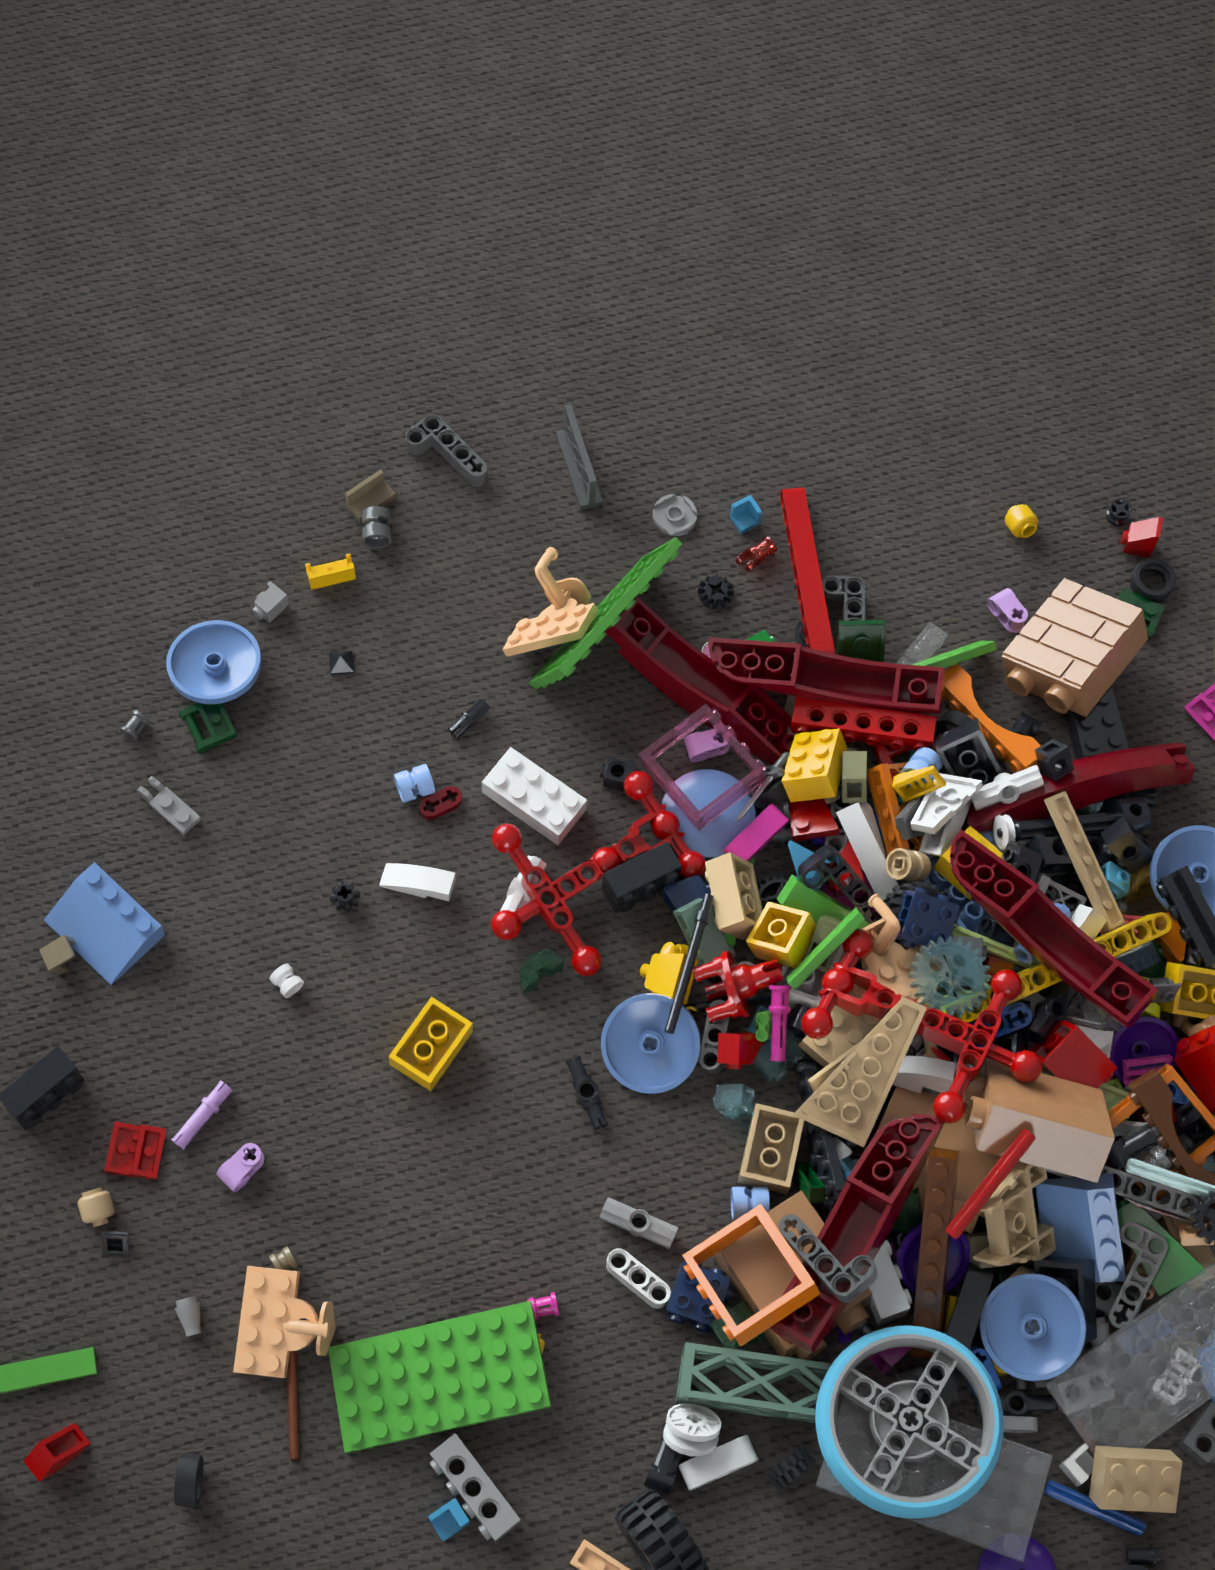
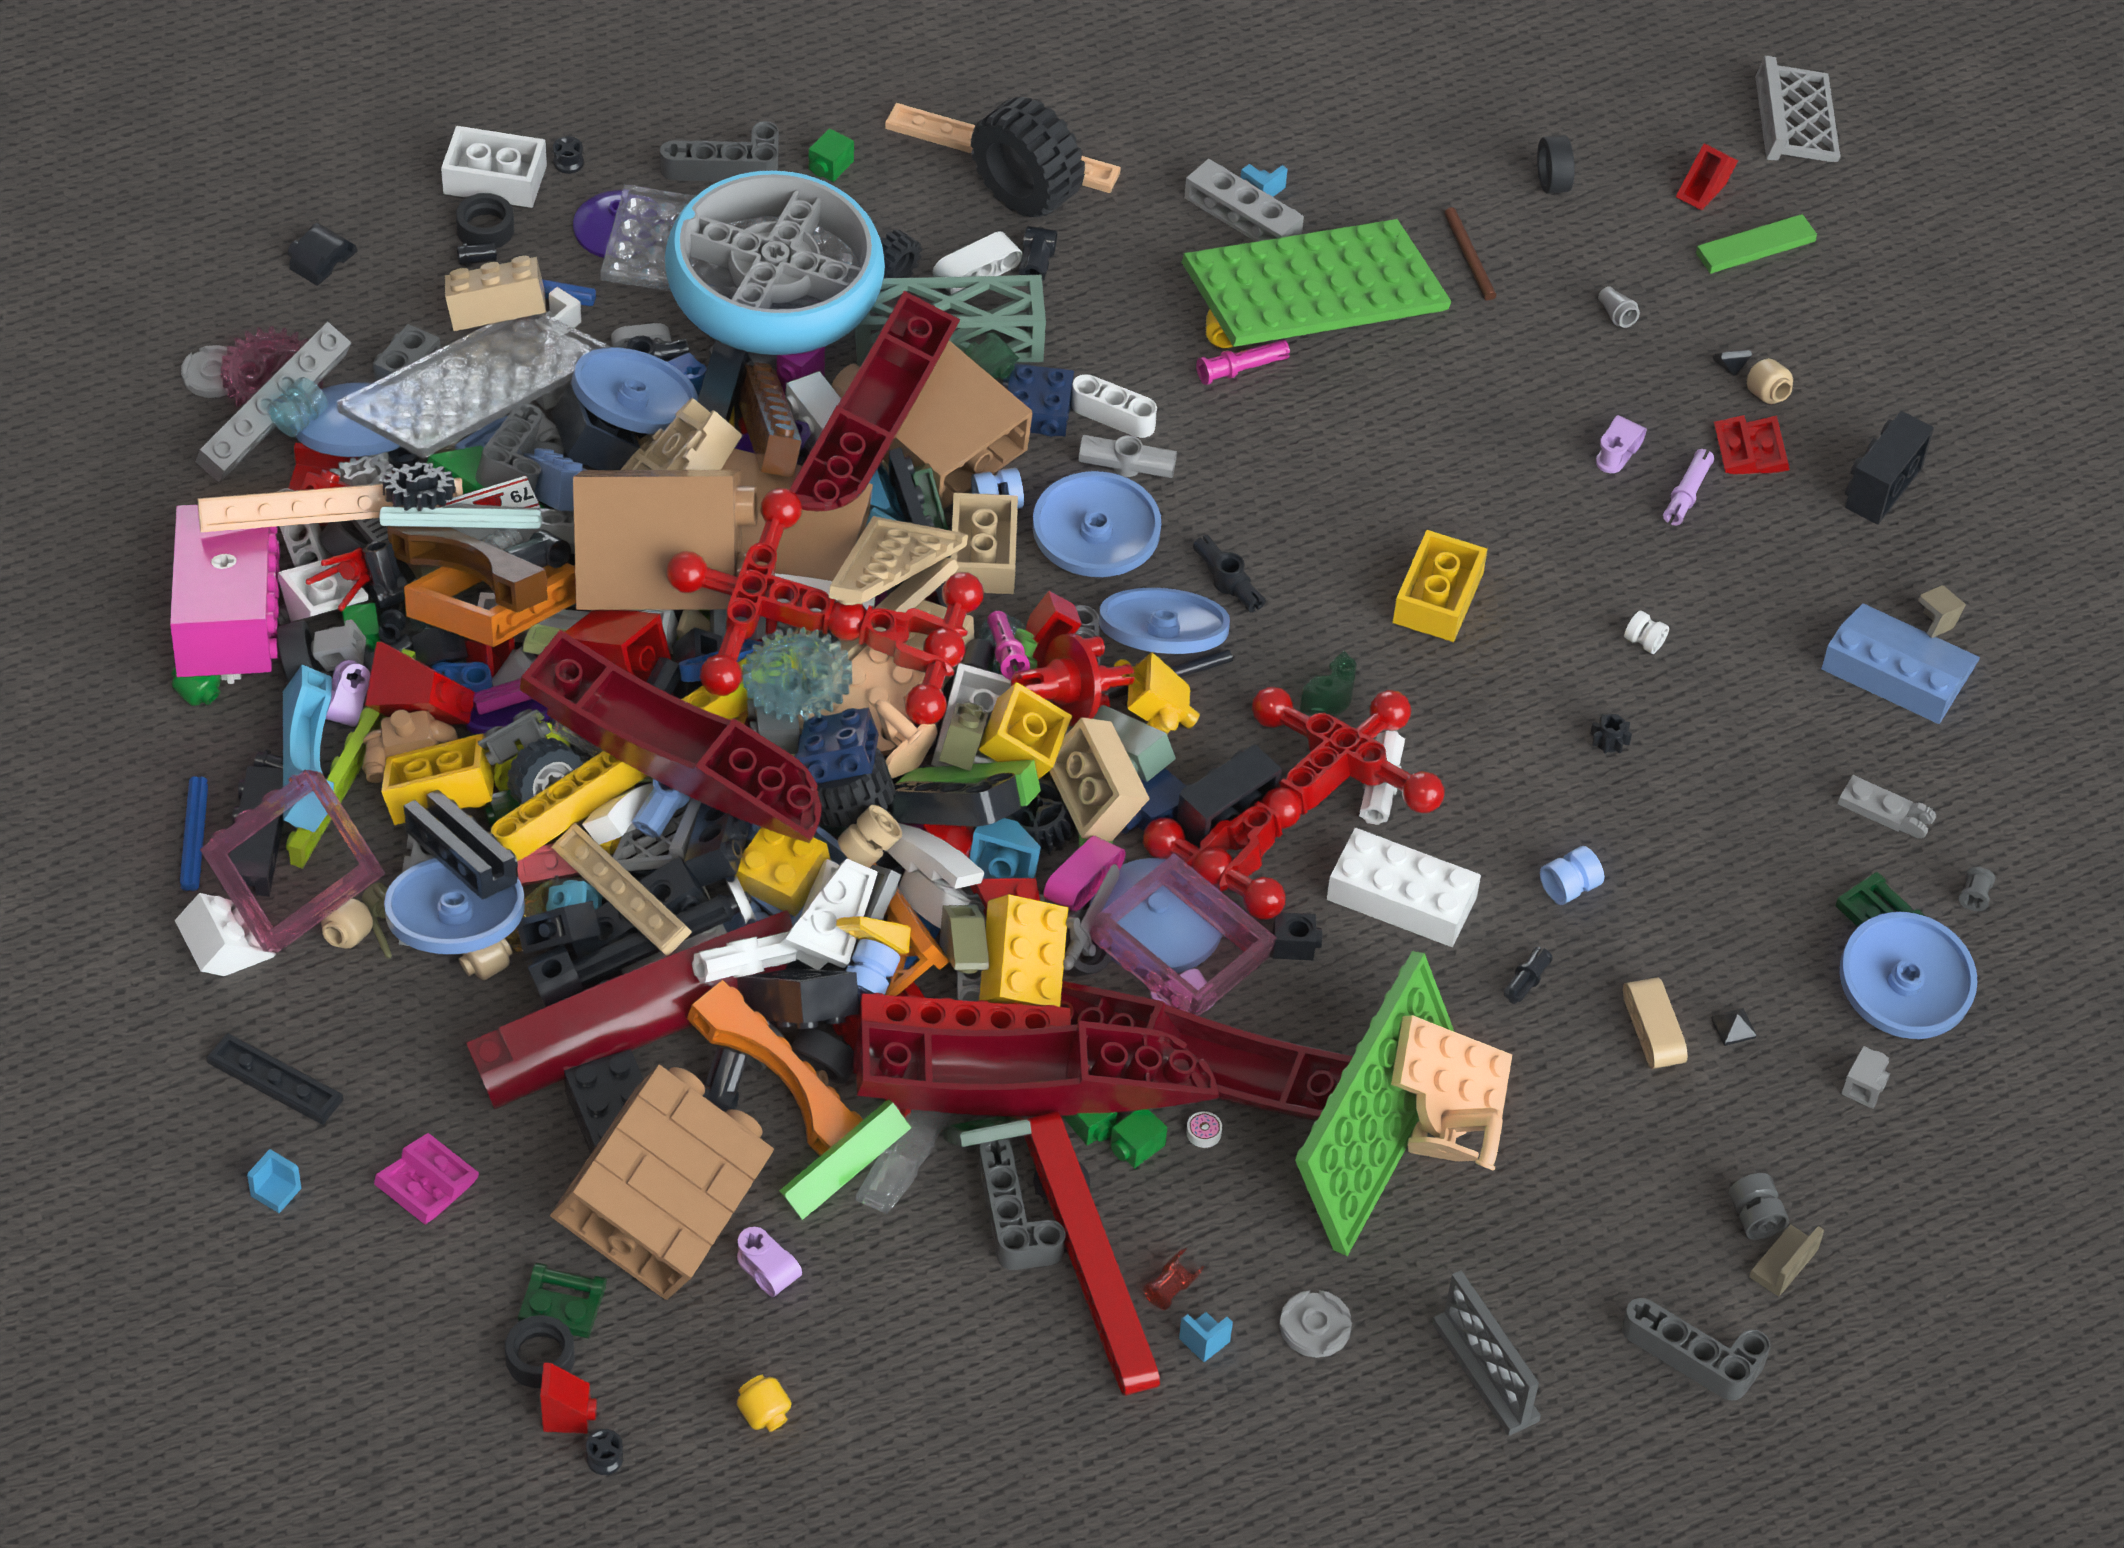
camera: 170 degrees right, 15 degrees down
(274, 1324) = (1508, 295): light nougat plate -> none
(284, 1260) = (1533, 363): dark tan wheel -> none
(331, 573) = (1800, 1137): yellow hinge -> none
(395, 667) = (1655, 1022): none -> tan beam
(418, 880) = (1521, 765): white slope -> none
(443, 807) = (1524, 863): dark red beam -> none
(679, 1152) = (1096, 524): none -> medium blue dish
(692, 1429) = (1012, 252): white wheel -> none
(702, 919) = (1136, 724): black bar -> none
(718, 600) = (1231, 1228): black gear -> none
(734, 1100) = (1037, 580): clear light blue brick -> none
(775, 1311) = (957, 383): window -> none
(822, 1255) = (906, 359): dark grey beam -> none
(825, 948) = (967, 693): bright green tile -> none
(990, 1183) = (718, 433): red axle -> none
(1054, 759) = (682, 988): black brick -> none

